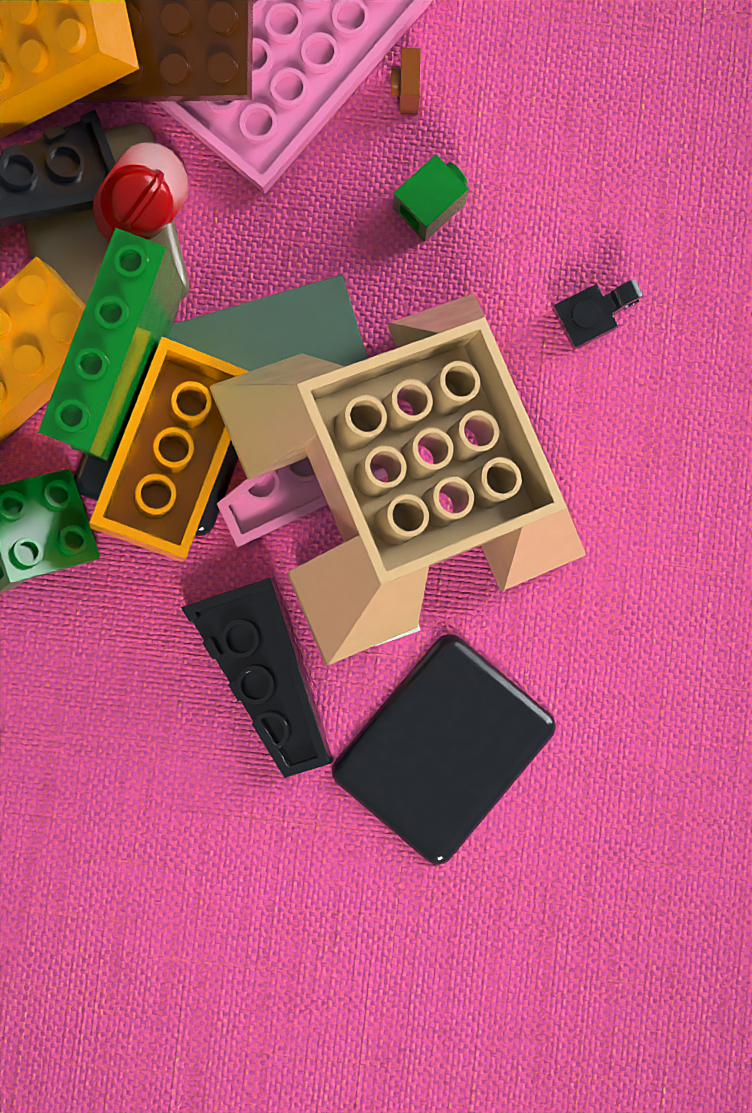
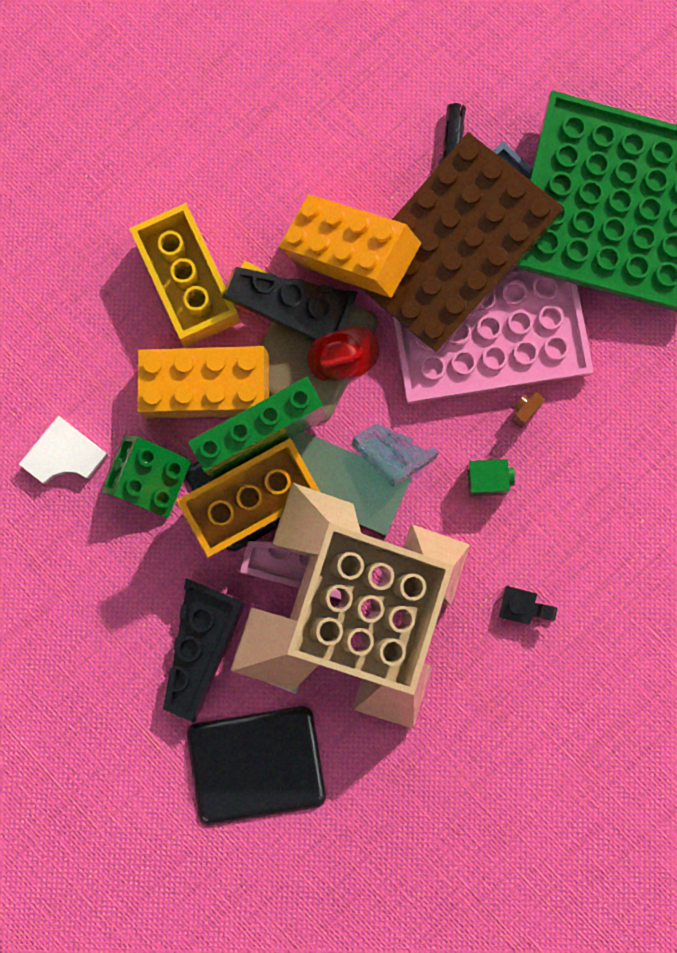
camera: 50 degrees right, 5 degrees down
(295, 263) = (392, 453): none -> clear light blue wing

